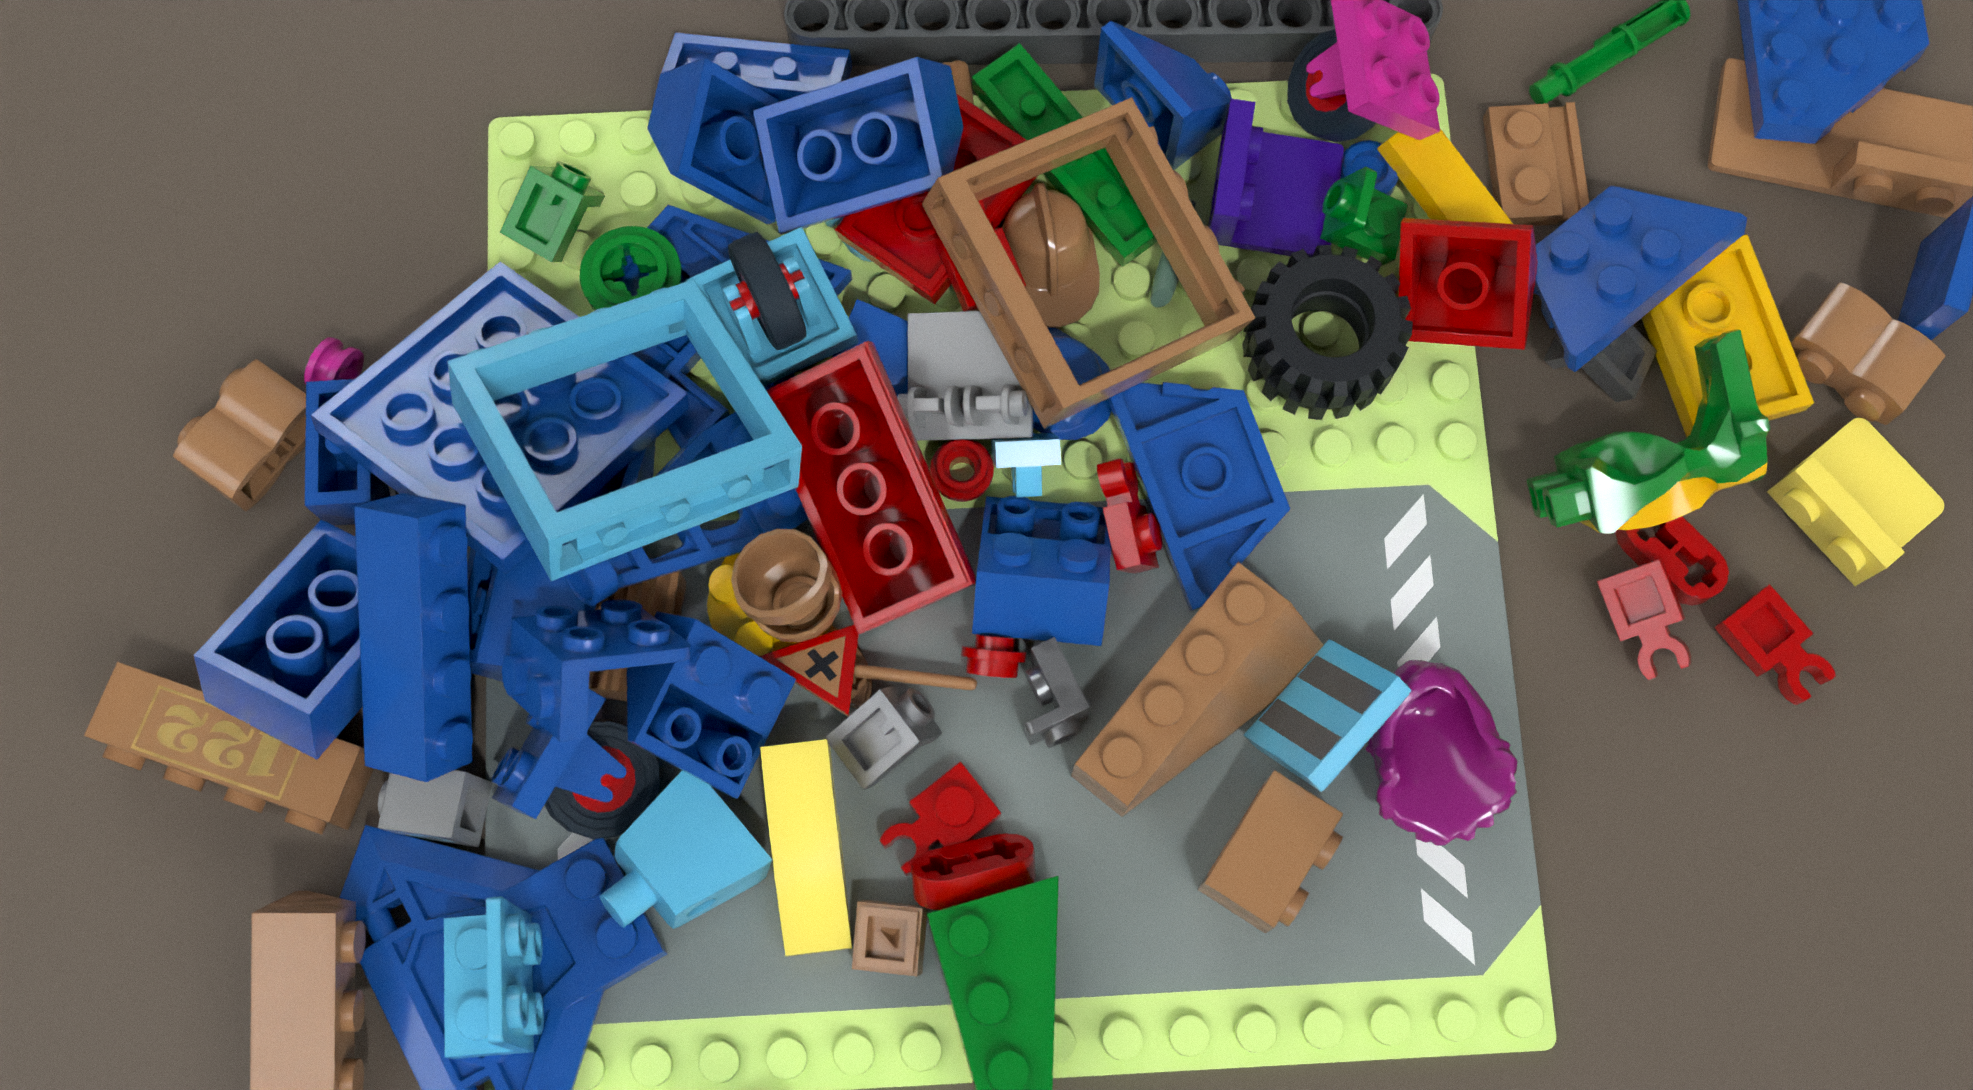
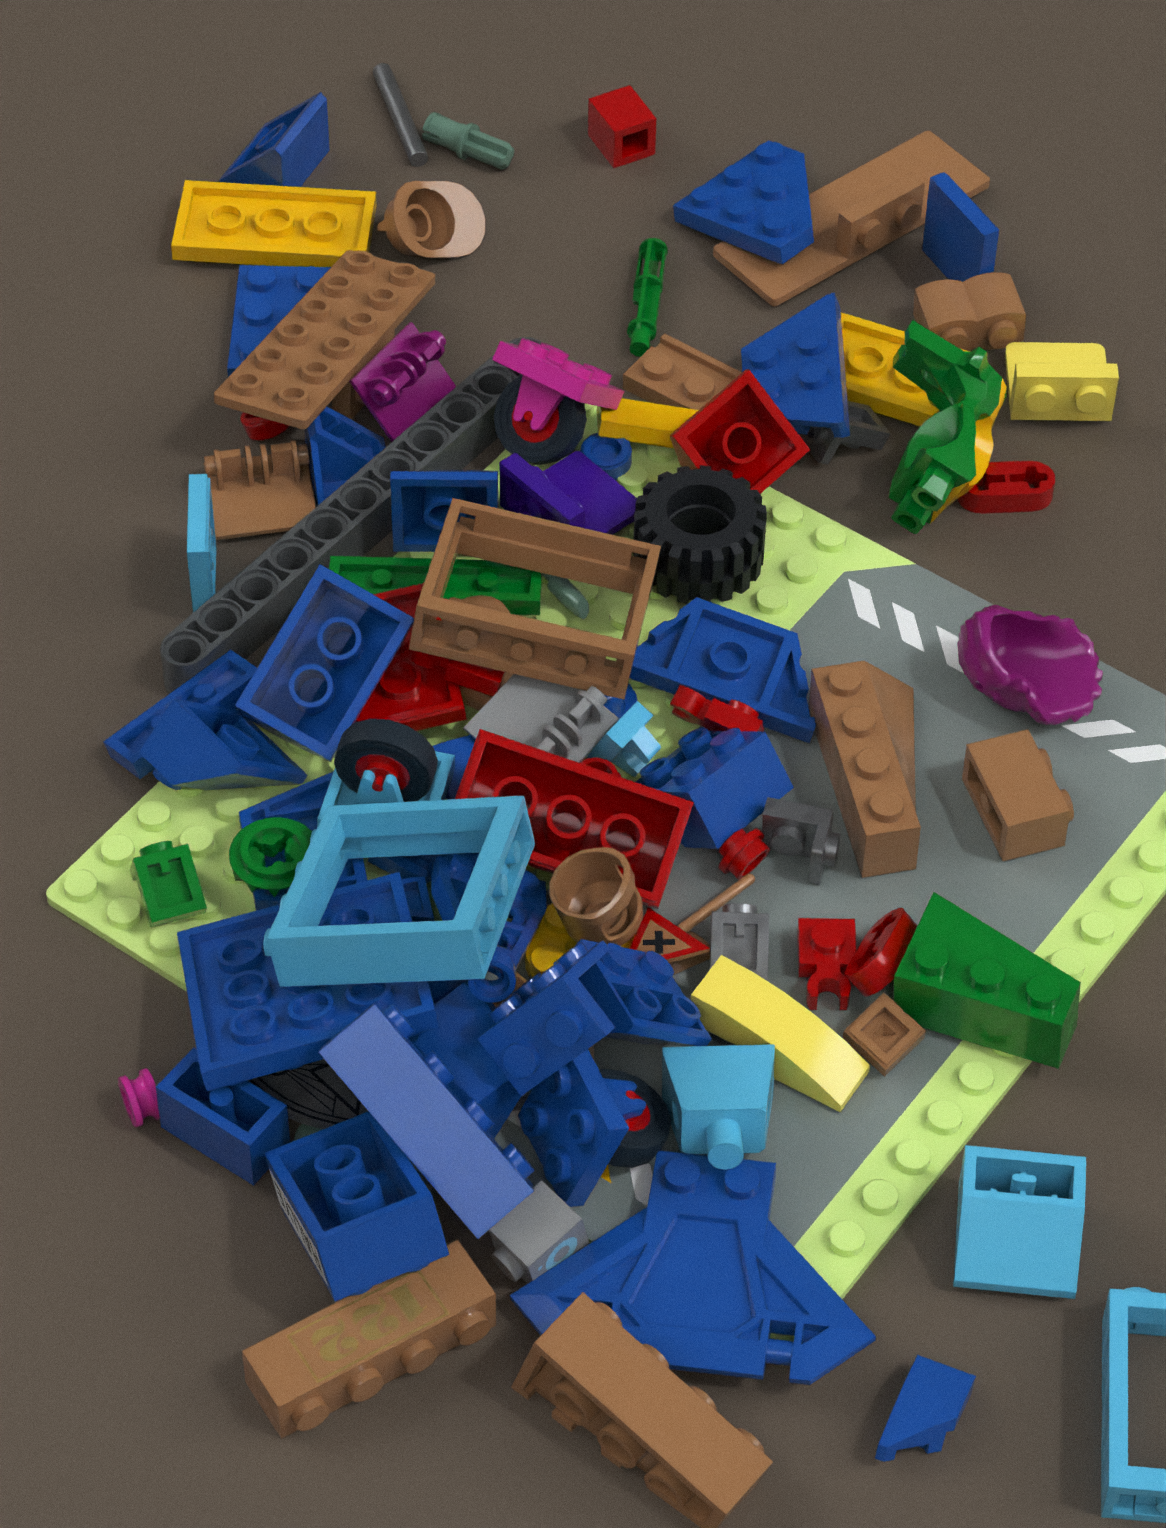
camera: 50 degrees left, 25 degrees down
(247, 435) = (138, 1180): medium nougat brick -> none
(490, 982) = (714, 1250): medium azure bracket -> none
(1327, 714) = (954, 694): medium azure tile -> none
(1363, 217) = (632, 465): green bracket -> none
(1644, 605) = (1029, 517): plate -> none
(1769, 636) = (1108, 478): red plate -> none

